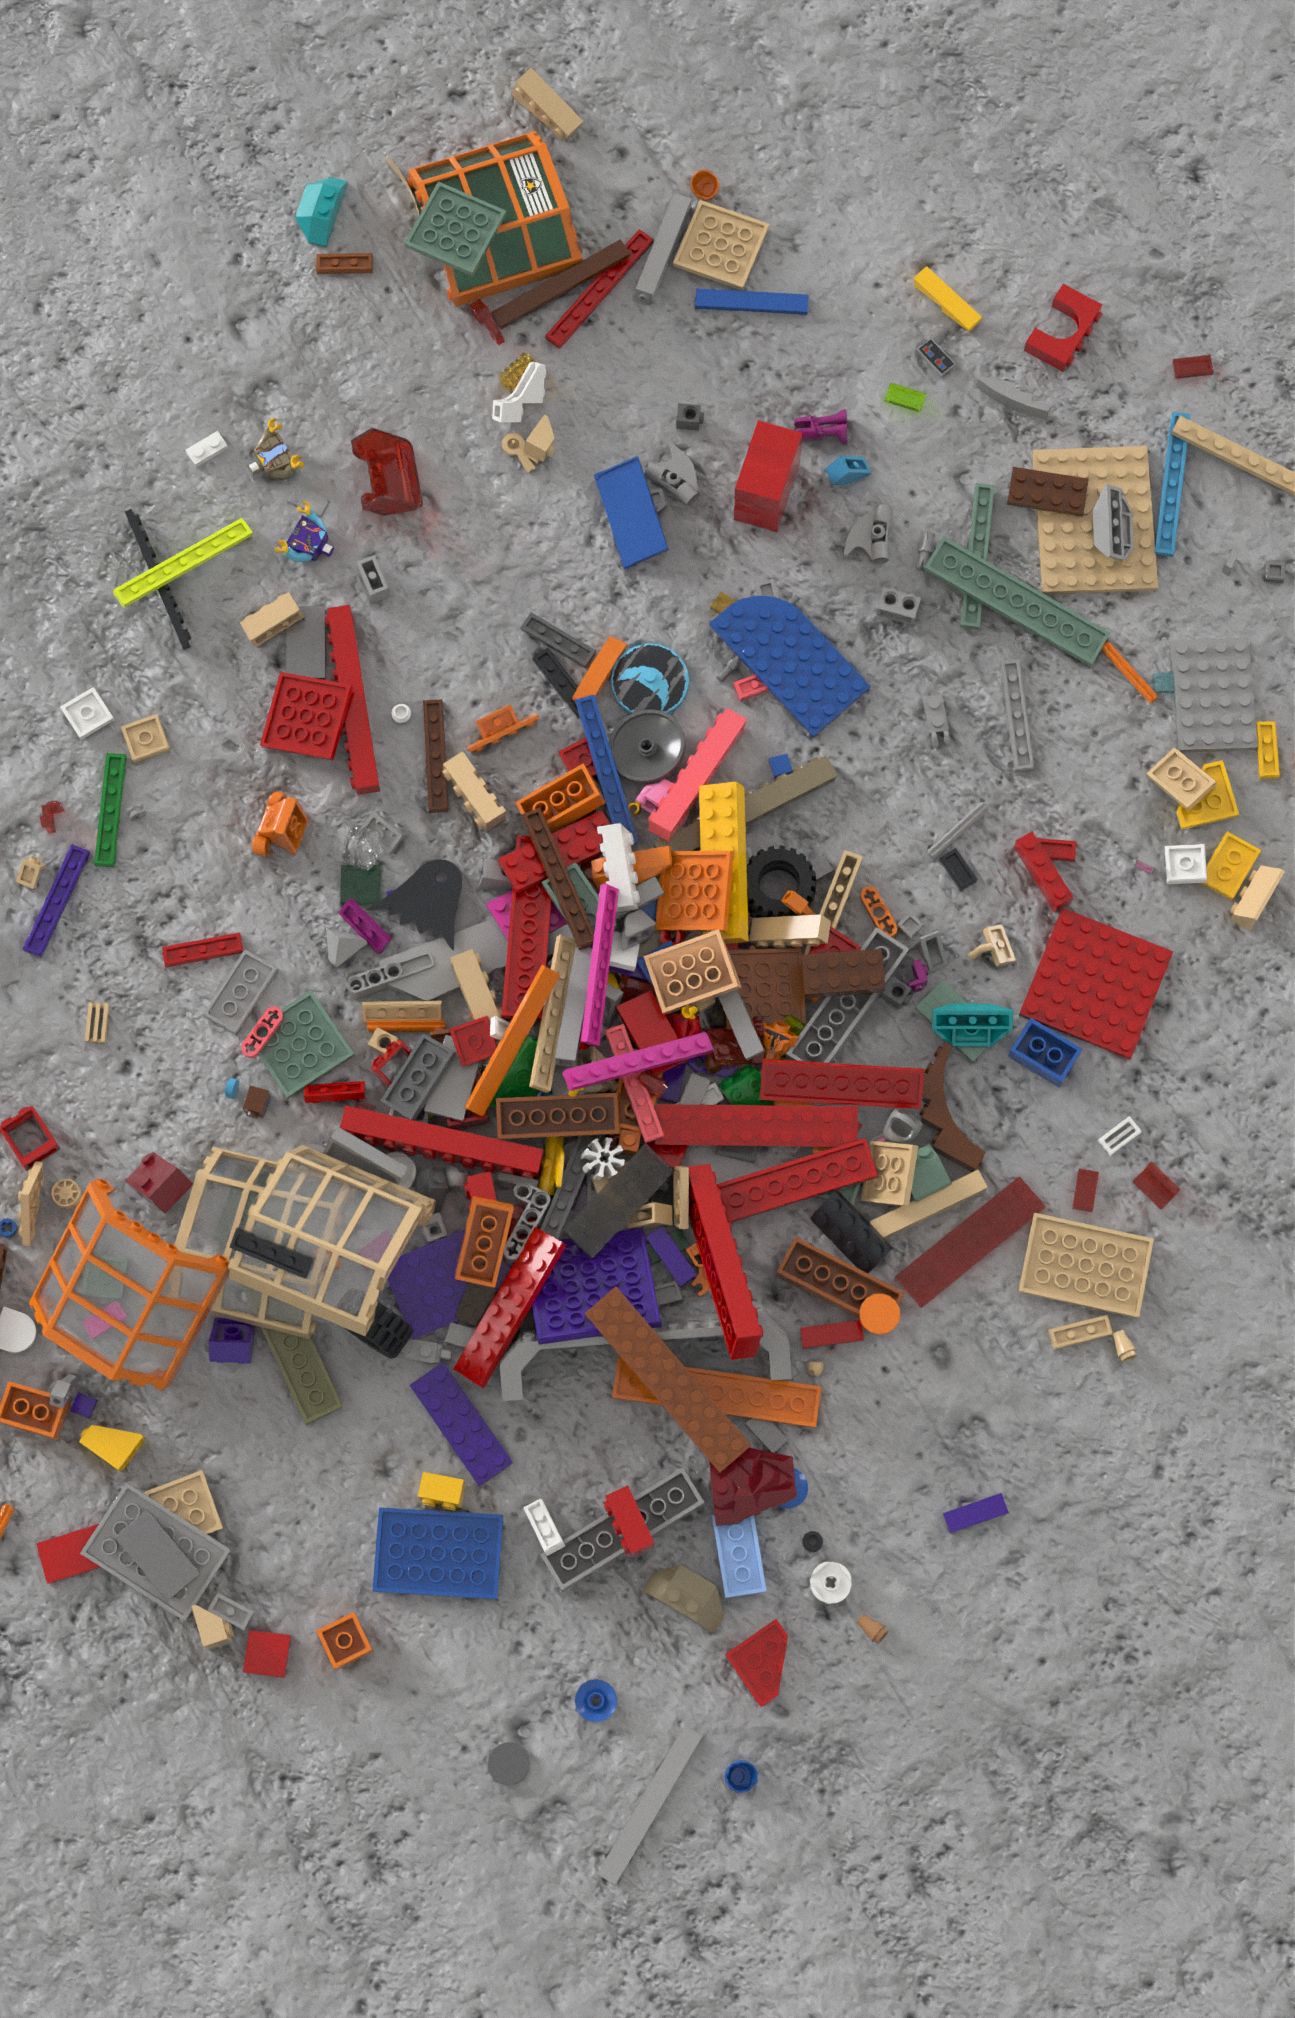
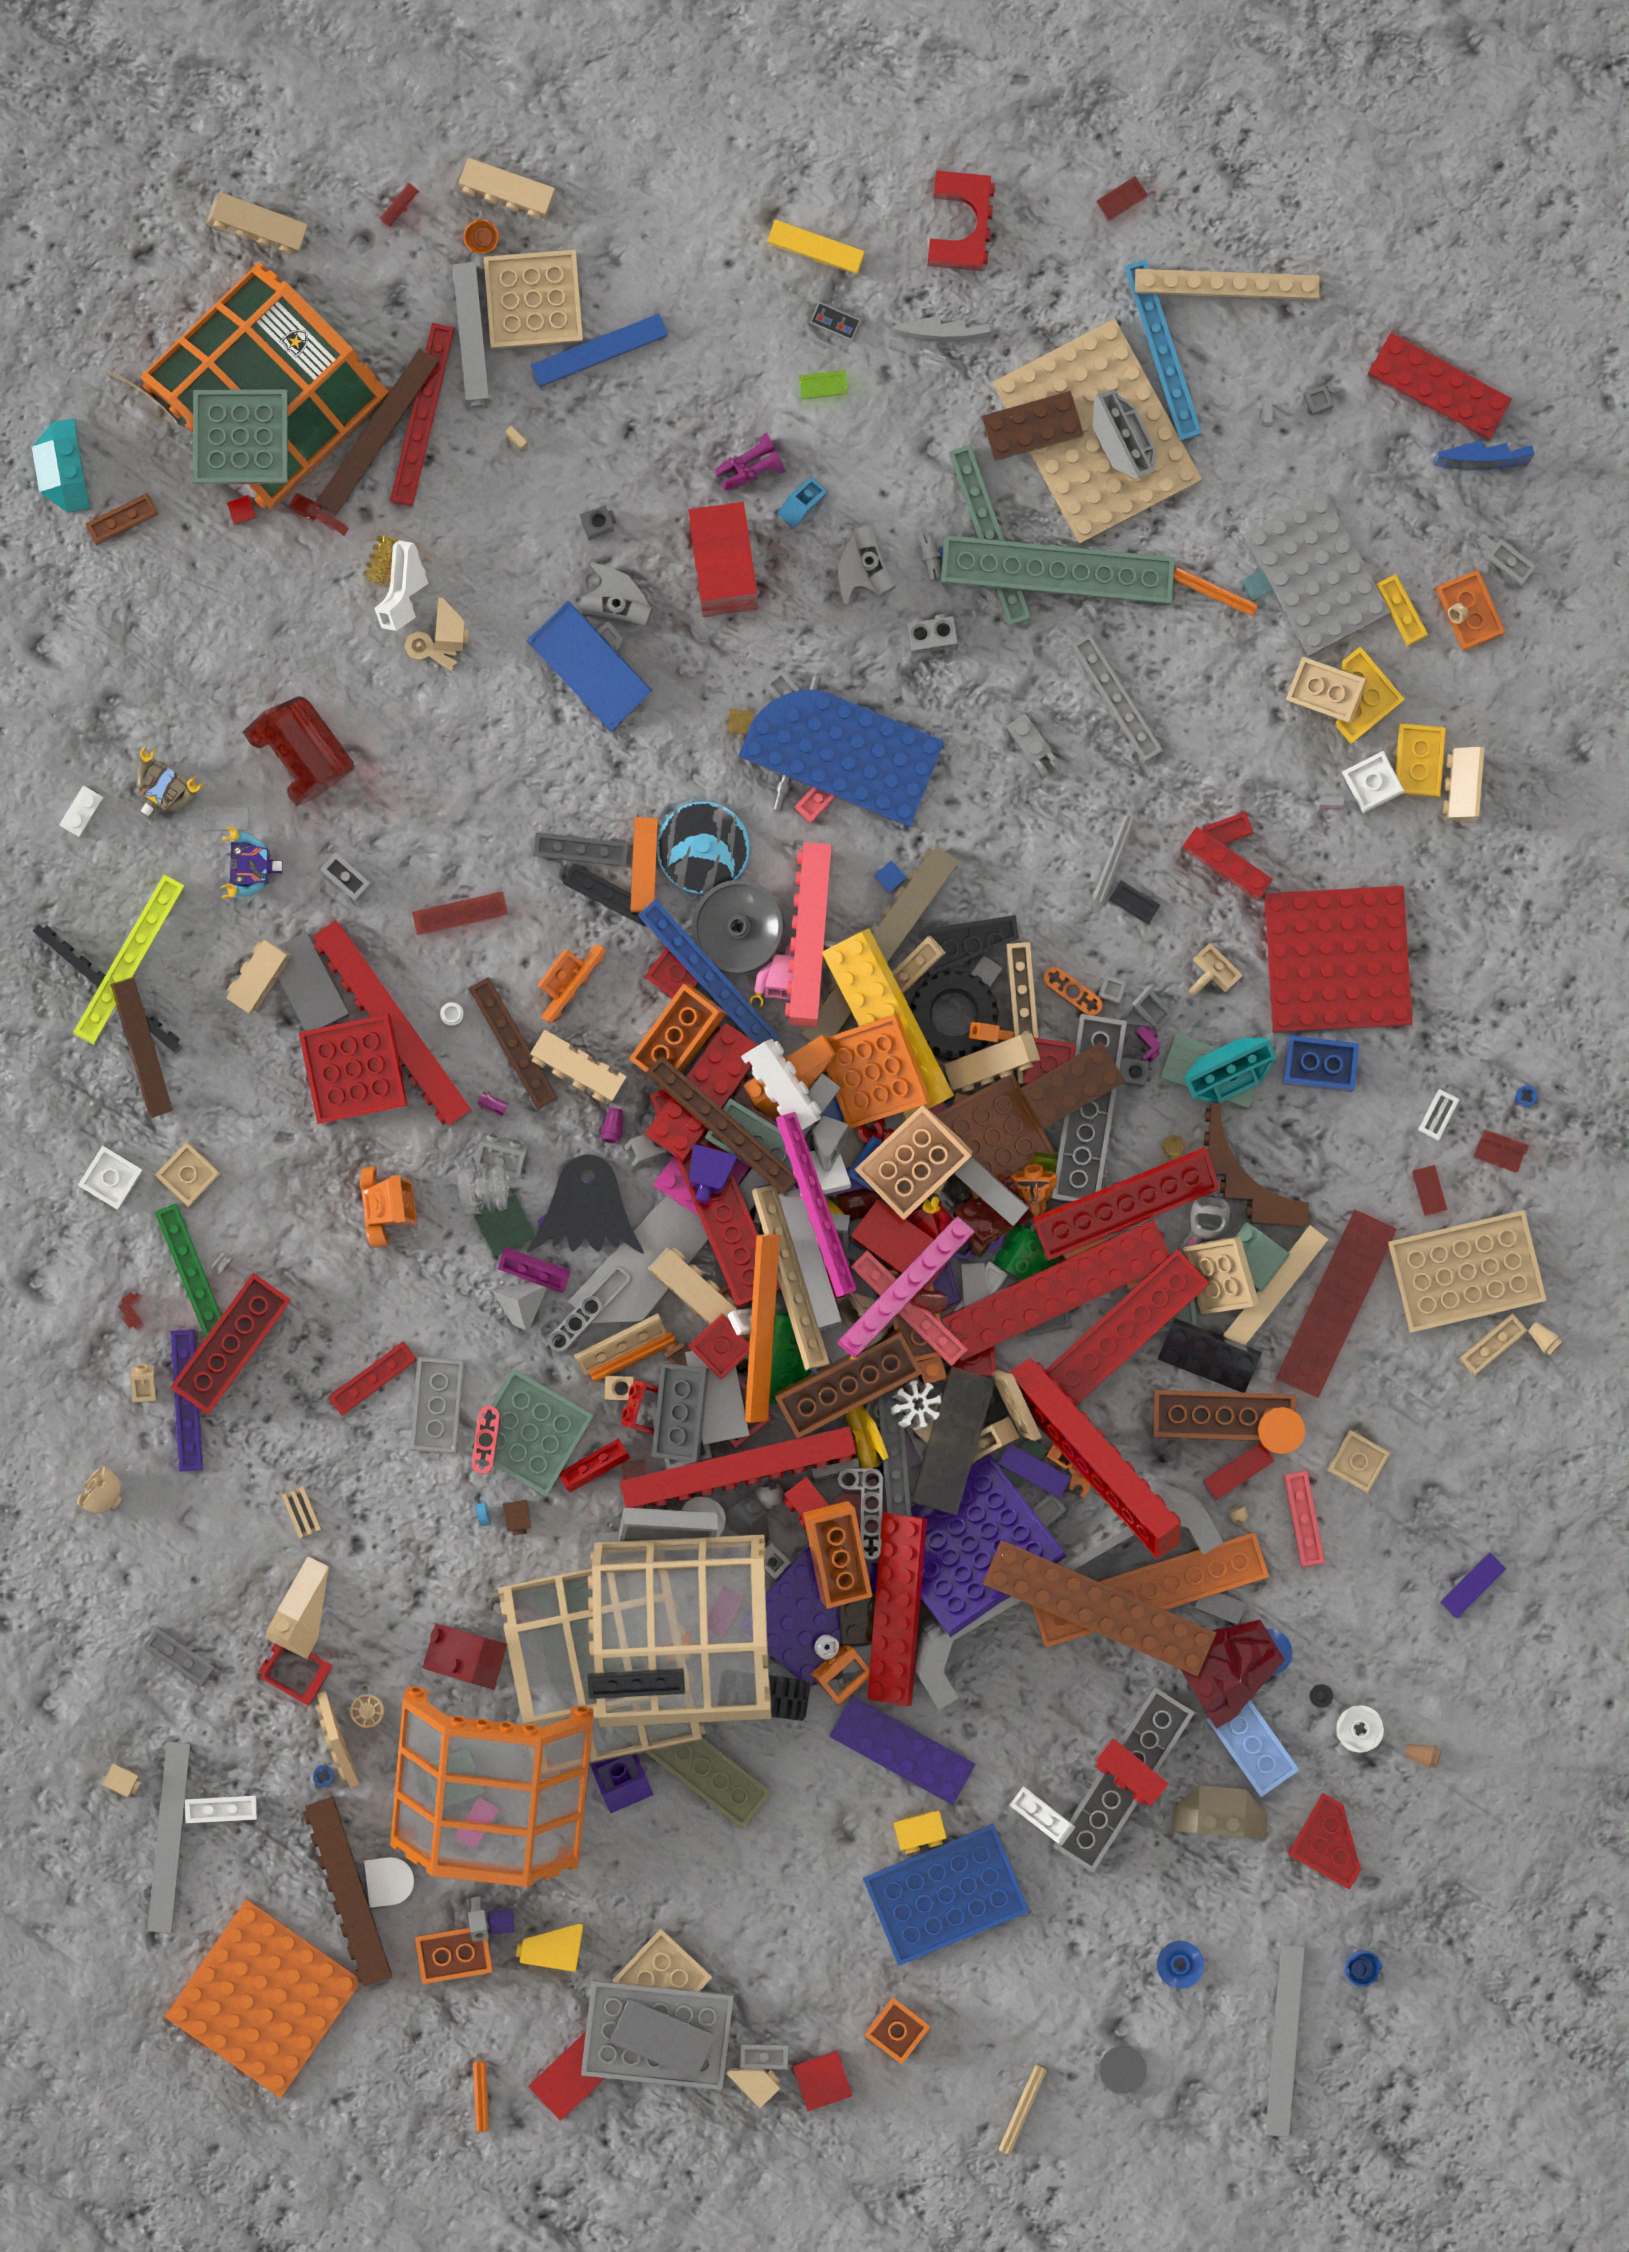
camera: 30 degrees left, 10 degrees up
(53, 1093) = (300, 1613): none -> tan wedge
(109, 871) = (230, 1344): none -> red brick
(158, 628) = (141, 1047): none -> reddish brown tile
(397, 791) = (493, 1104): none -> magenta pin
(412, 1756) = (1022, 2109): none -> tan axle
(433, 295) = (241, 510): none -> red tile
(438, 1330) = (833, 1666): none -> orange tile
(441, 1312) = (826, 1647): none -> white tile
(444, 644) = (460, 913): none -> clear red plate
(478, 850) = (613, 1126): none -> magenta cone
(533, 908) = (710, 1171): none -> dark purple torso
(656, 140) = (399, 205): none -> clear red pin
(659, 333) = (516, 439): none -> tan tile
(741, 162) = (506, 188): none -> tan brick
(768, 834) = (917, 964): none -> tan tile
(815, 835) = (971, 939): none -> black wedge
(865, 1396) = (1304, 1519): none -> coral tile
(900, 1060) = (1173, 1146): none -> clear yellow tile
(930, 1372) = (1358, 1461): none -> tan tile
(1199, 1148) = (1533, 1097): none -> blue bush

